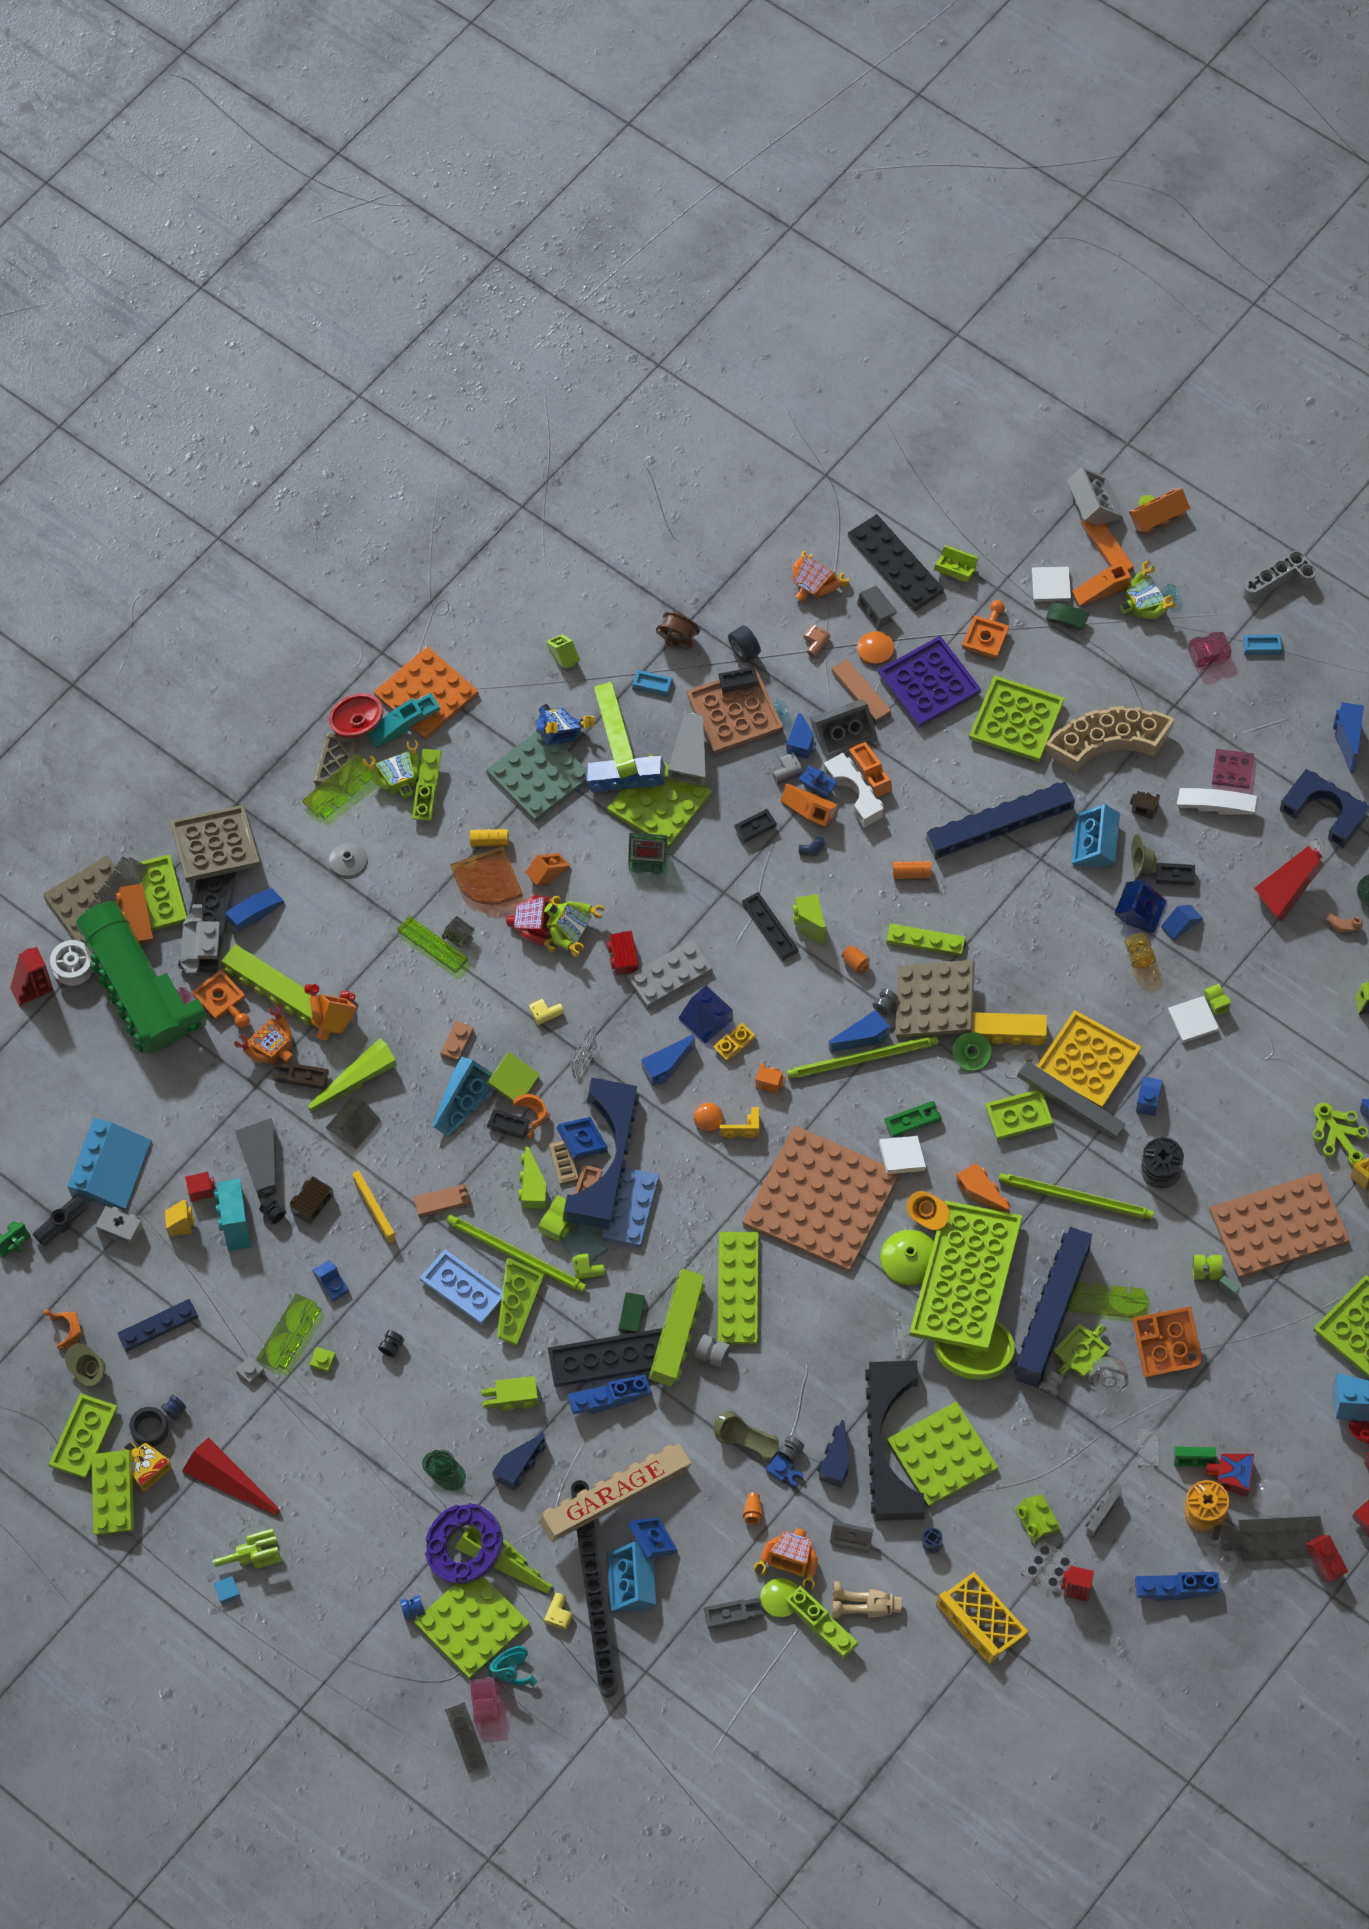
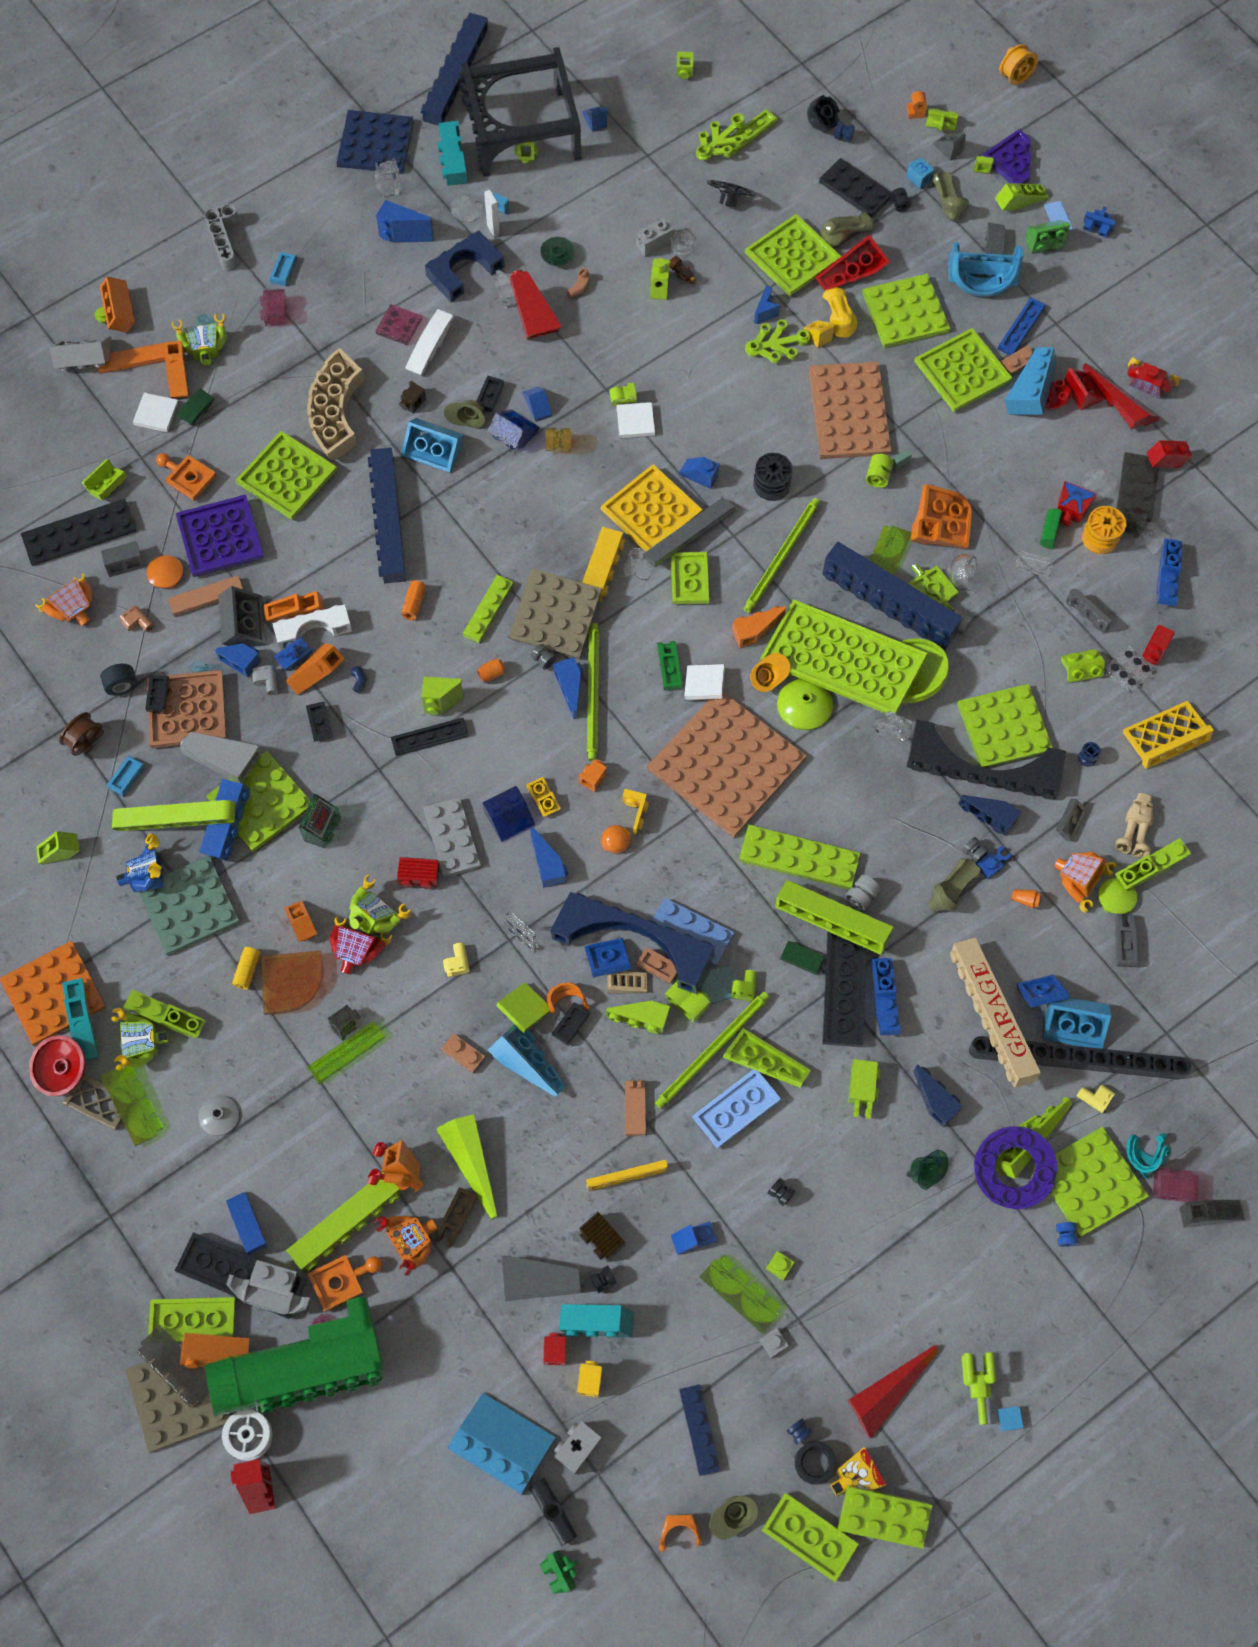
camera: 80 degrees left, 5 degrees up
(214, 843) = (155, 1247): dark tan plate -> none
(354, 1122) = (523, 1176): clear smoke slope -> none
(981, 1053) = (617, 597): bright green dish -> none

